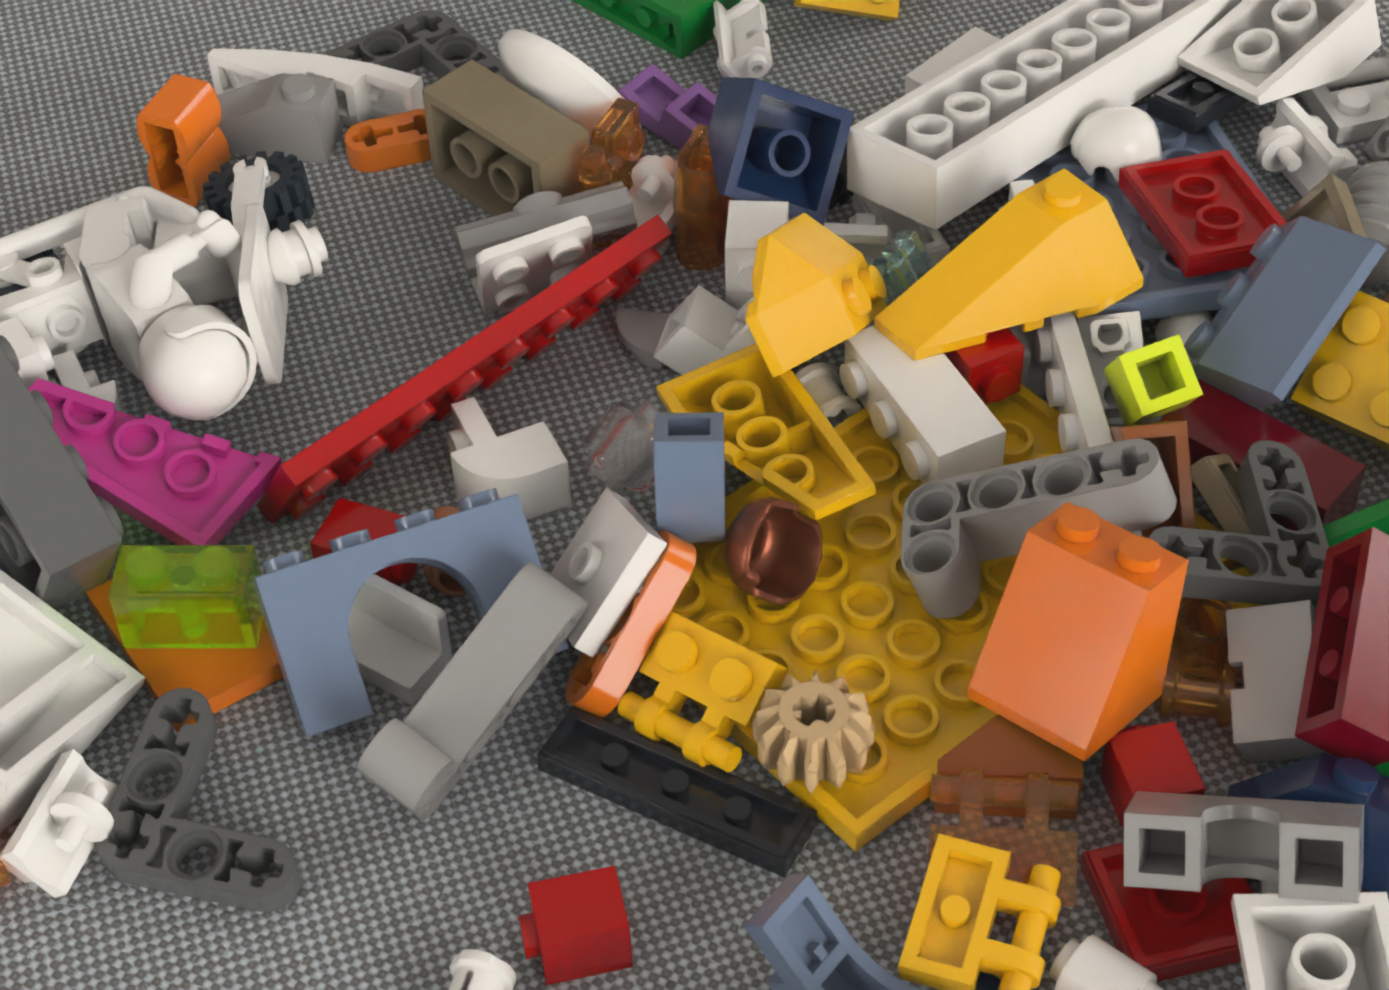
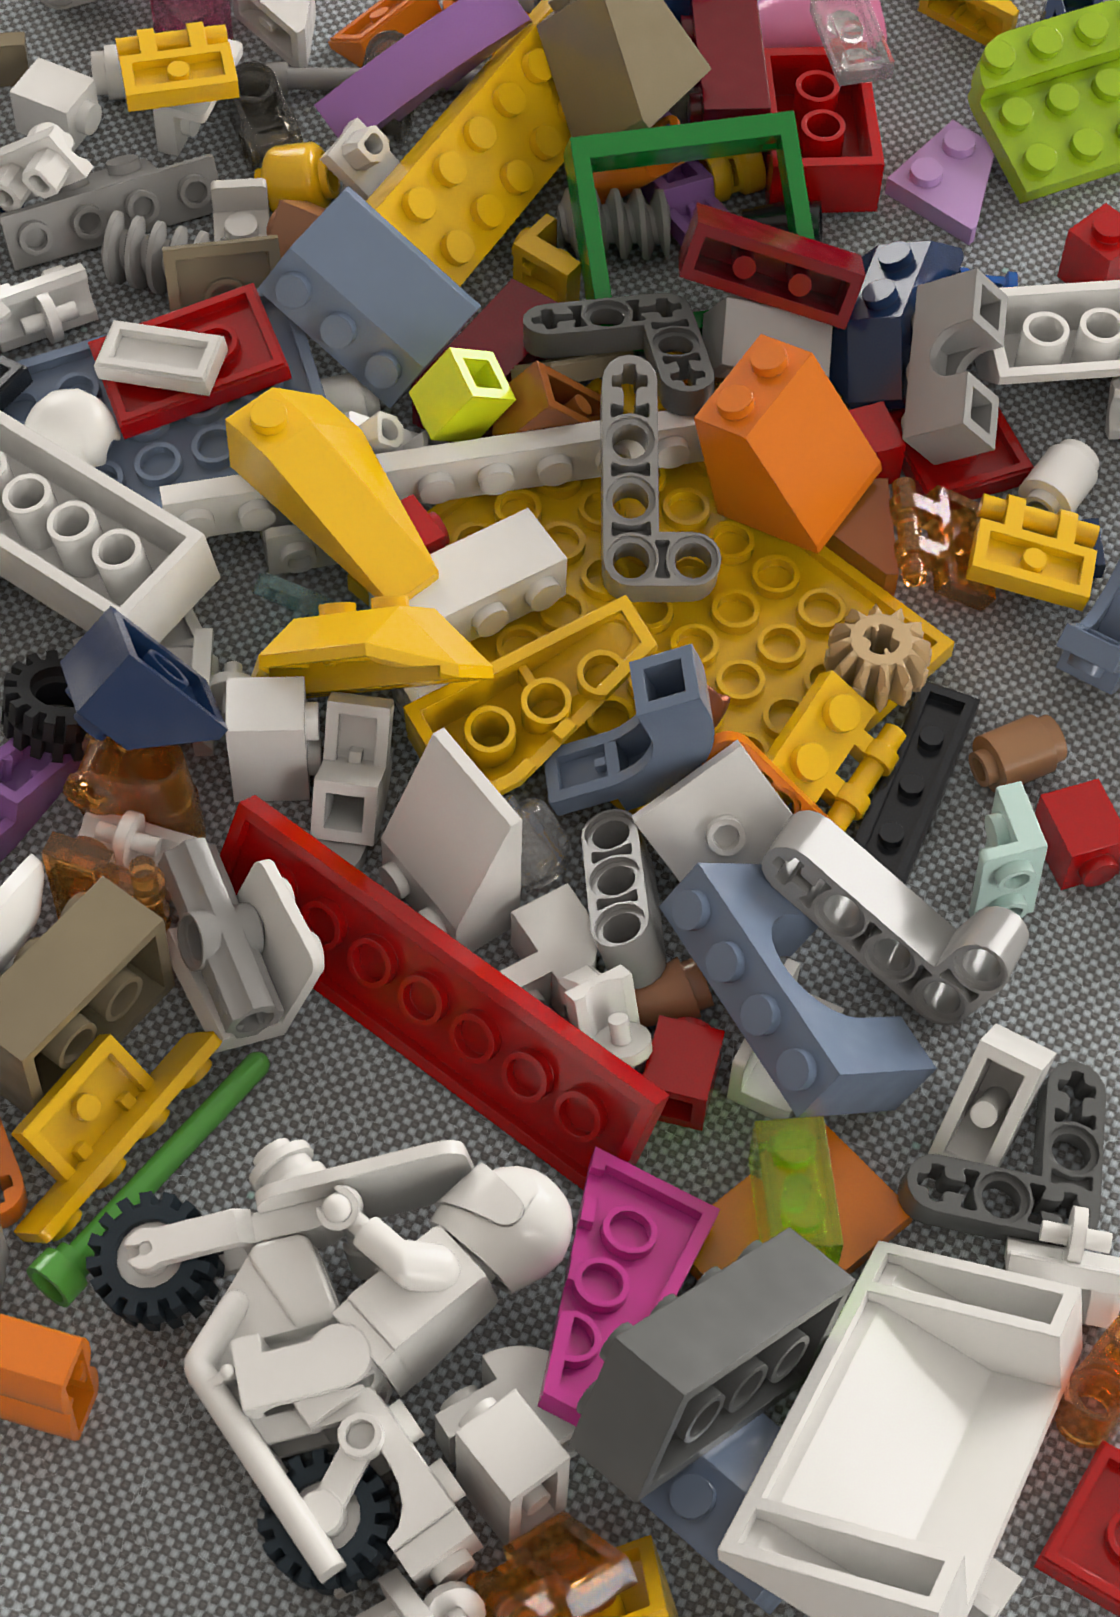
camera: 100 degrees left, 10 degrees up
(274, 793) = (993, 1097): none -> white slope
(382, 240) = (62, 1270): none -> bright green piece
(407, 473) = (607, 1012): none -> white hips
(411, 180) = (96, 1118): none -> yellow bracket
(539, 823) = (1013, 854): none -> light aqua bracket
(551, 495) = (623, 896): none -> light grey beam
(601, 361) = (454, 847): none -> white slope
(699, 881) = (1017, 751): none -> medium nougat brick
(1193, 179) = (161, 357): none -> white tile

